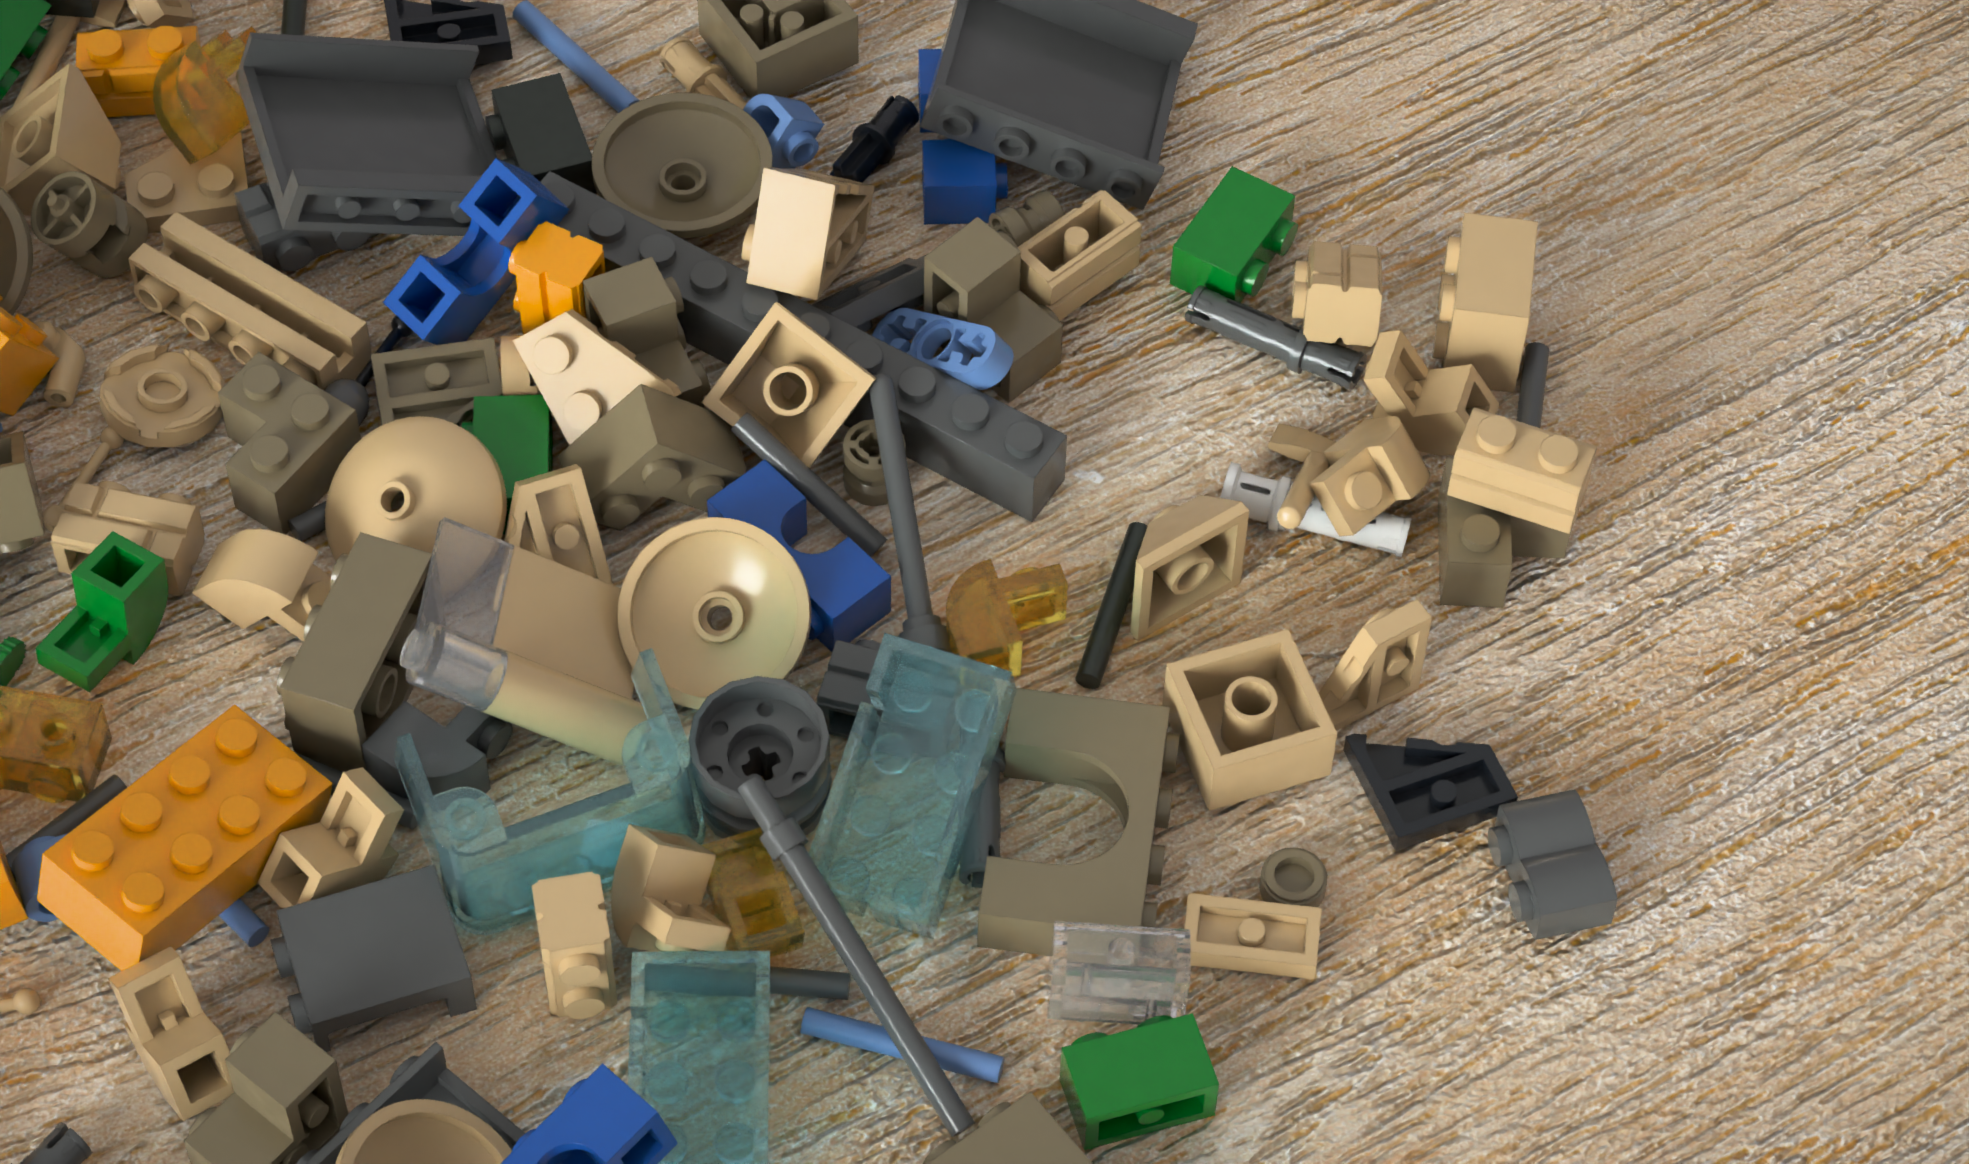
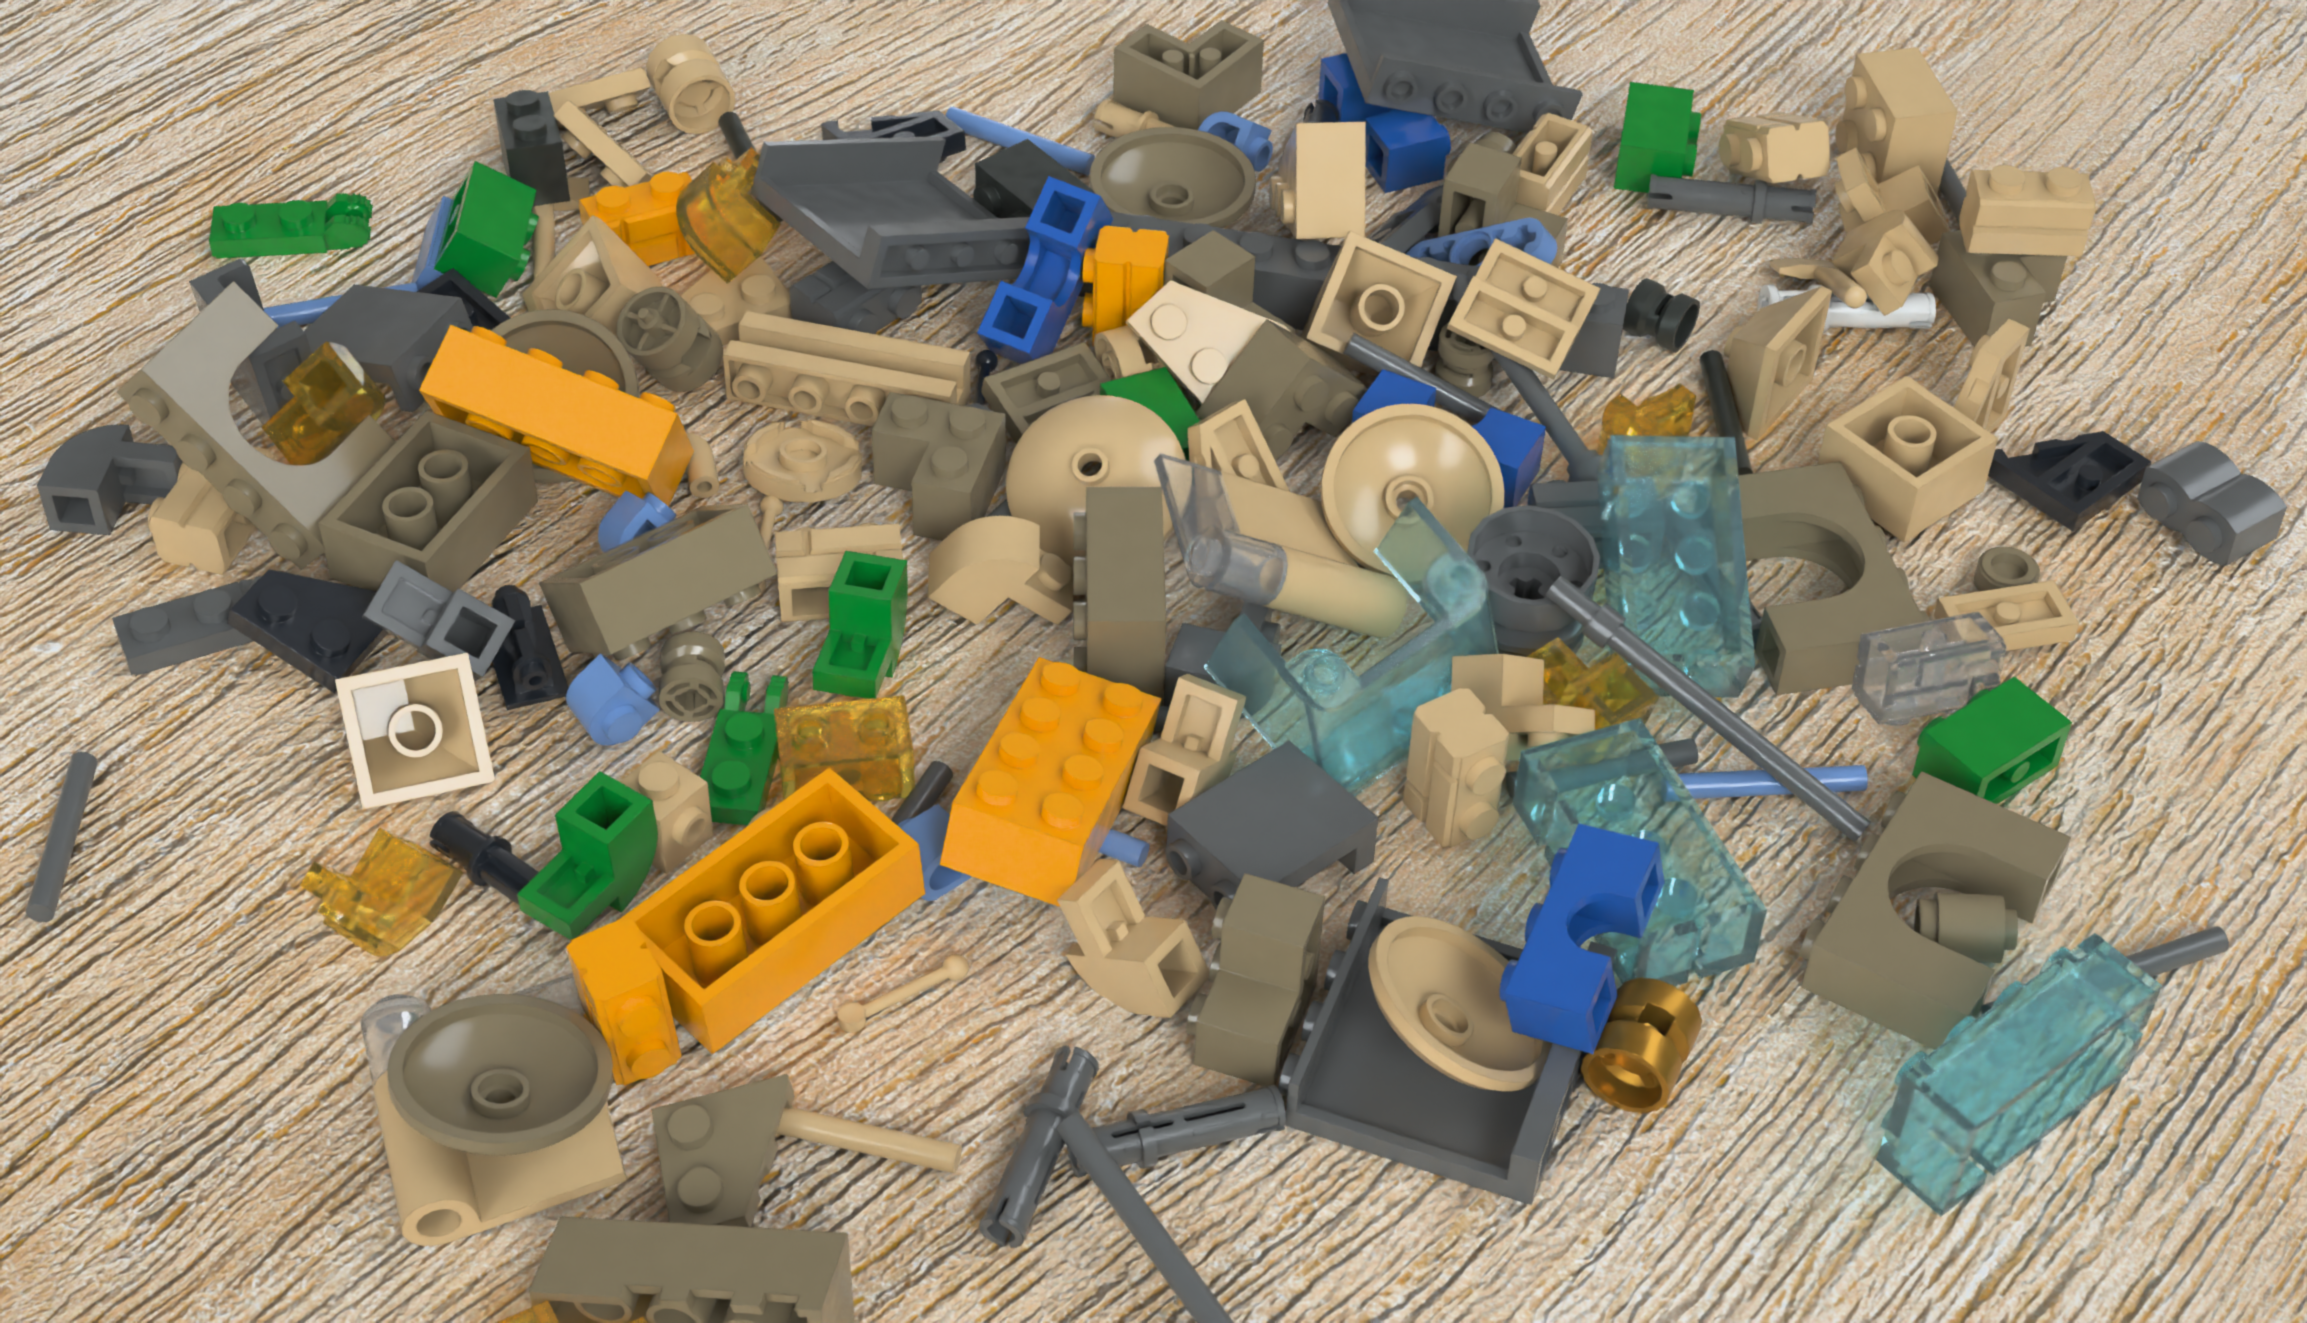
camera: 20 degrees left, 10 degrees down
(924, 438) = (1524, 308): none -> tan slope
(1111, 469) = (1661, 315): none -> pearl dark grey wheel

